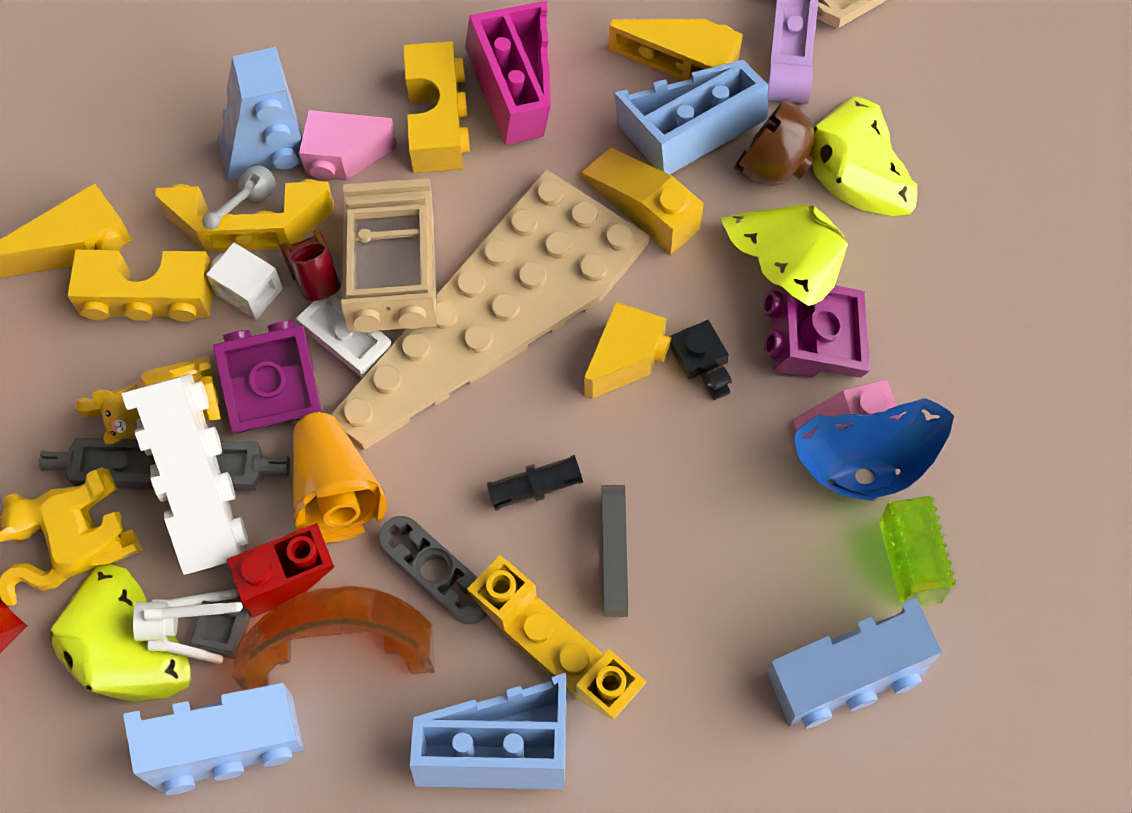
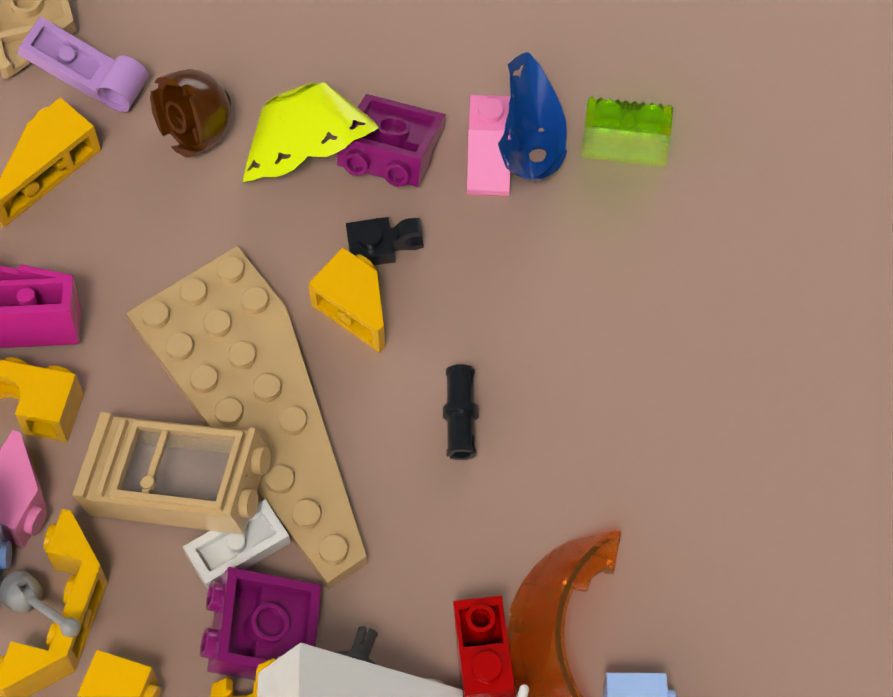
camera: 75 degrees left, 5 degrees down
(244, 280) = (137, 627): white brick -> none
(312, 267) = (150, 553): dark red piece -> none
(332, 481) = (398, 586): light orange cone -> none
(401, 556) = (483, 529): dark grey beam -> none
(495, 742) = (711, 499): light blue wedge -> none
(552, 643) = (634, 434): yellow slope -> none
(614, 551) = (550, 362): dark grey beam -> none
(647, 197) = (193, 236): yellow slope -> none
(692, 116) = (127, 170): light blue wedge -> none
(854, 666) = (715, 204): light blue wedge -> none
(862, 160) = (227, 50): neon yellow piece -> none

